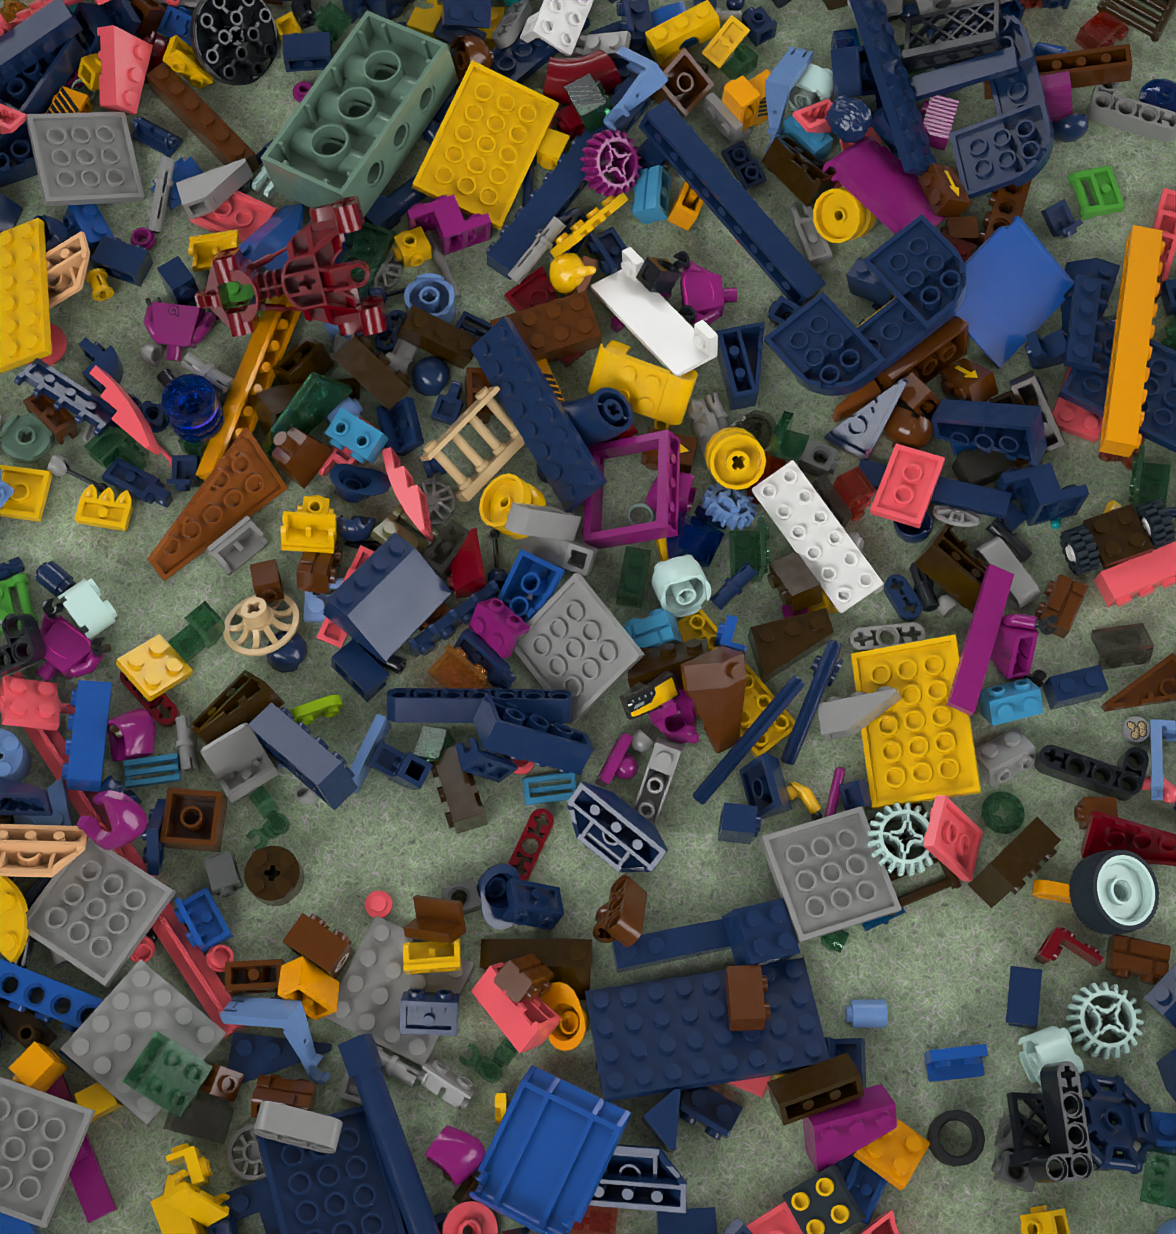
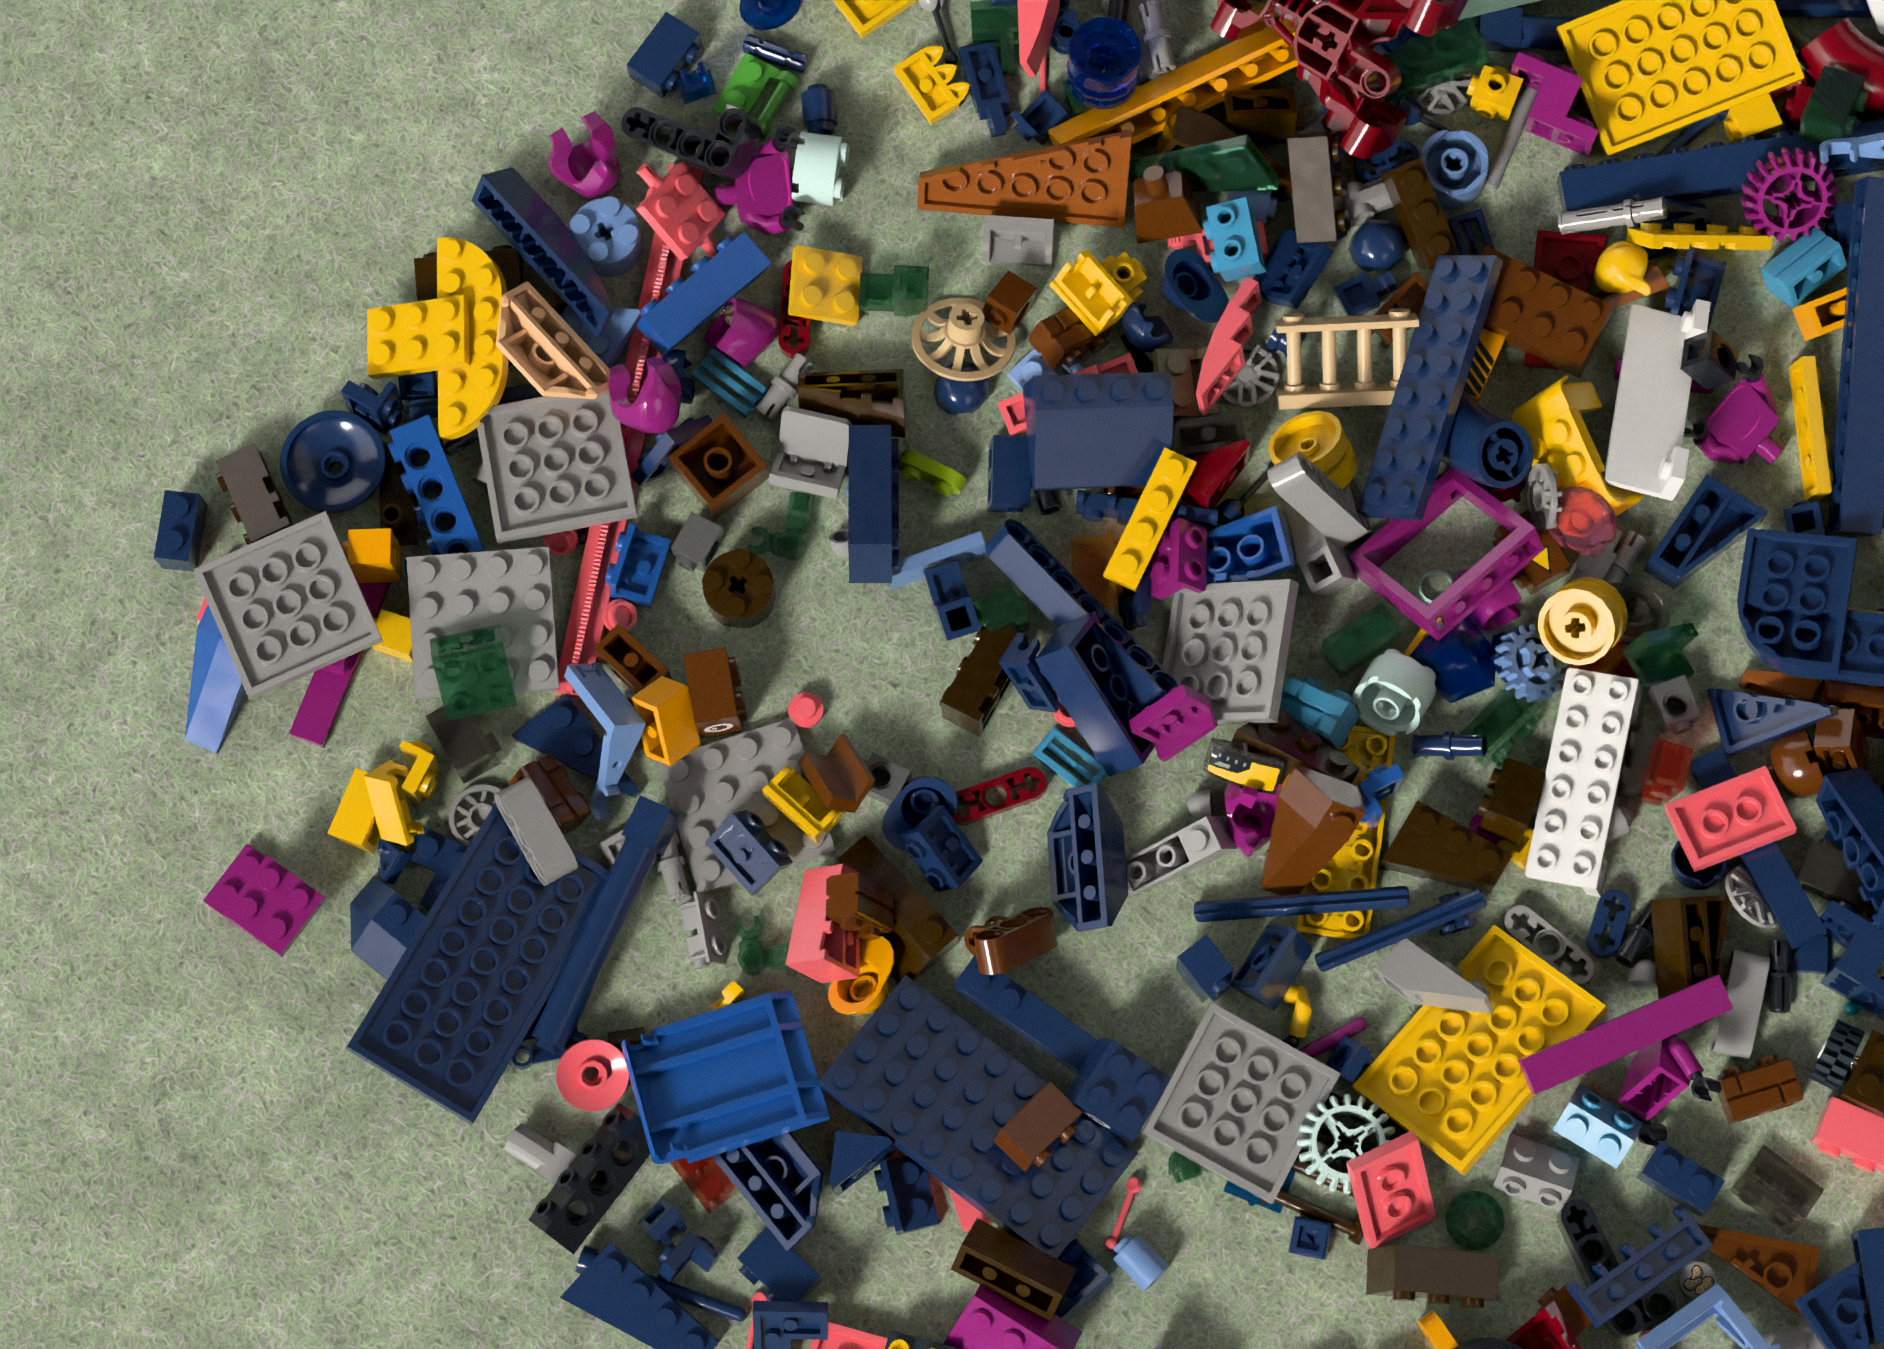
camera: 55 degrees right, 5 degrees up
(222, 1082) = (513, 727): reddish brown bracket -> none
(456, 1154) = (648, 996): magenta piece -> none
(463, 618) = (1149, 519): none -> yellow plate
(588, 708) = (1175, 721): none -> magenta bracket
(618, 763) = (1159, 807): magenta tile -> none
(649, 409) = (1543, 496): none -> light grey wheel
(682, 409) = (1585, 521): none -> clear pink tile
(737, 267) = (1811, 438): none -> yellow plate
(819, 977) = (1133, 1186): none -> coral hinge
(935, 908) = (1310, 1237): none -> dark blue tile
(1113, 750) = (1642, 1269): none -> dark blue hinge

